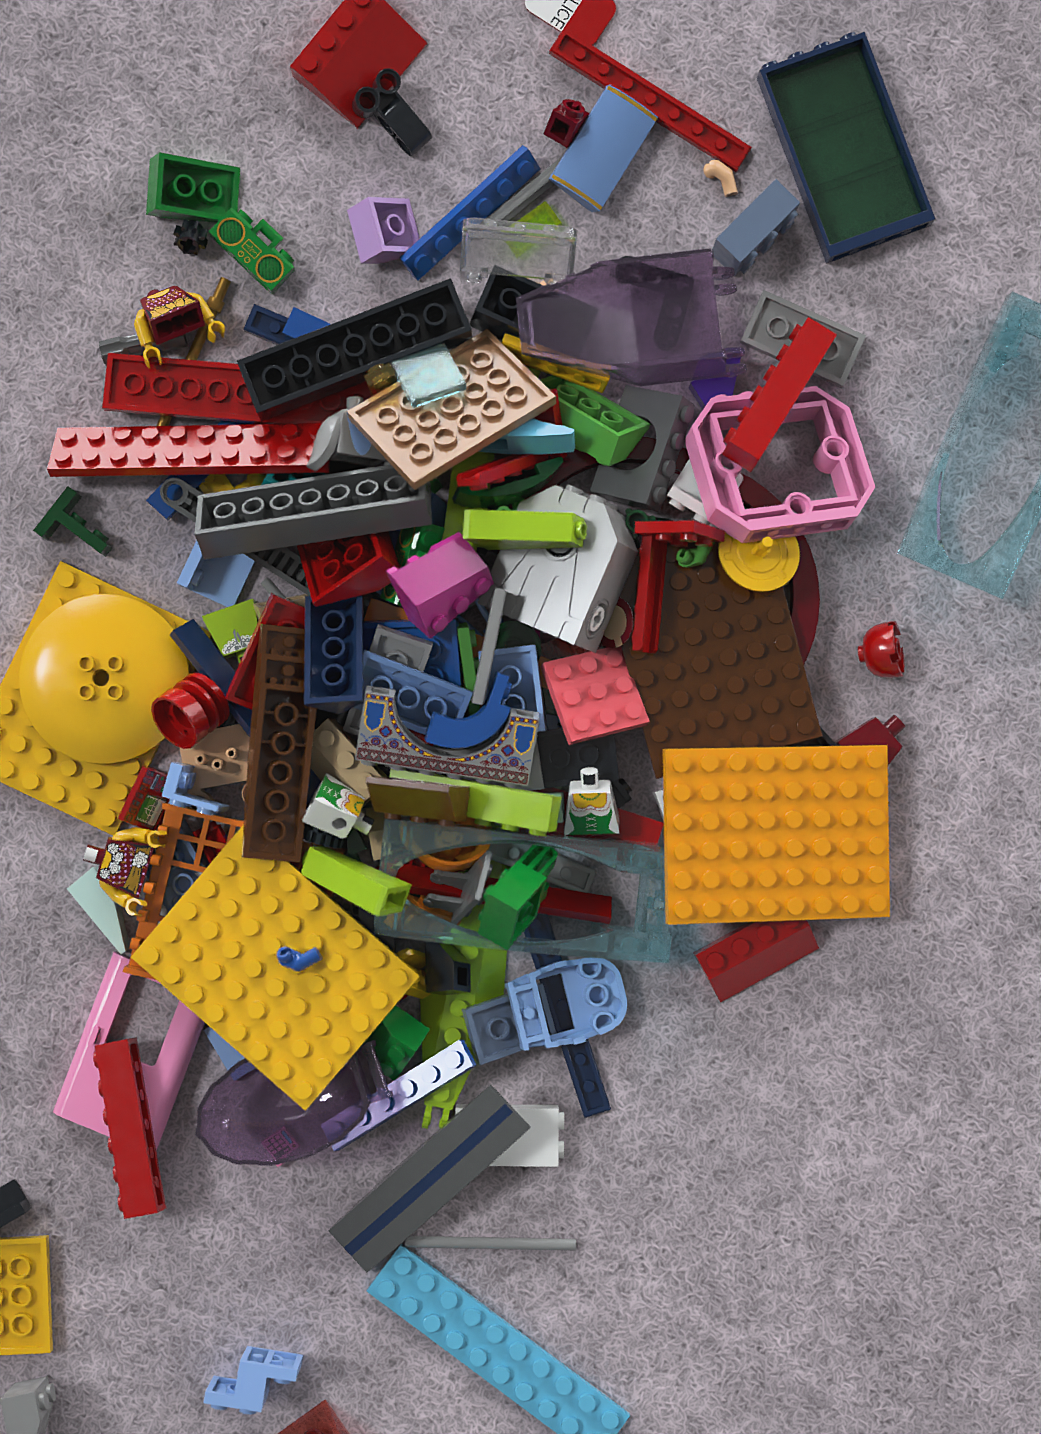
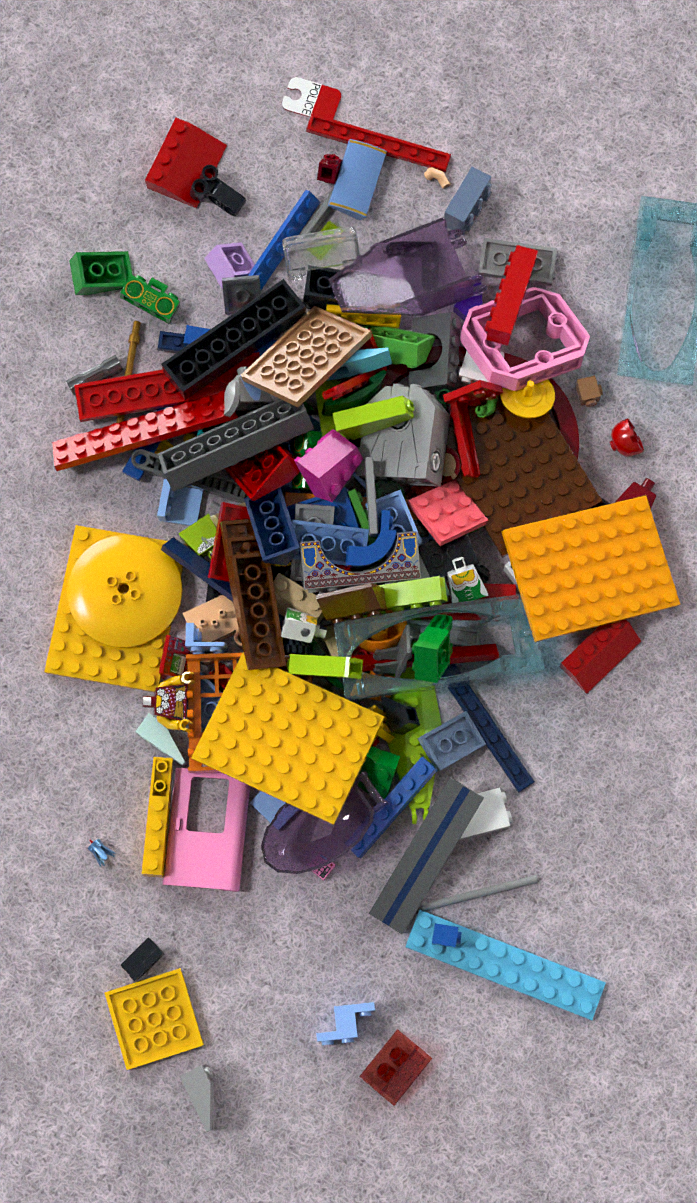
camera: 10 degrees left, 10 degrees down
(59, 514) = (78, 498): dark green bracket -> none
(68, 1020) = (157, 818): none -> yellow slope
(129, 1128) = (218, 874): red brick -> none
(170, 315) = (108, 351): torso -> none
(190, 237) = (105, 297): black gear -> none
(190, 710) = (187, 592): red wheel -> none
(297, 961) = (300, 726): blue arm -> none
(380, 378) = (255, 350): clear yellow plate -> none
(385, 278) = (239, 291): none -> flat silver tile
(425, 1297) = (446, 935): none -> blue brick
(428, 375) = (286, 340): clear light blue tile -> none
(593, 997) = (499, 706): light blue slope -> none
(845, 146) = (510, 138): clear green window -> none
(850, 563) = (588, 391): none -> medium nougat brick

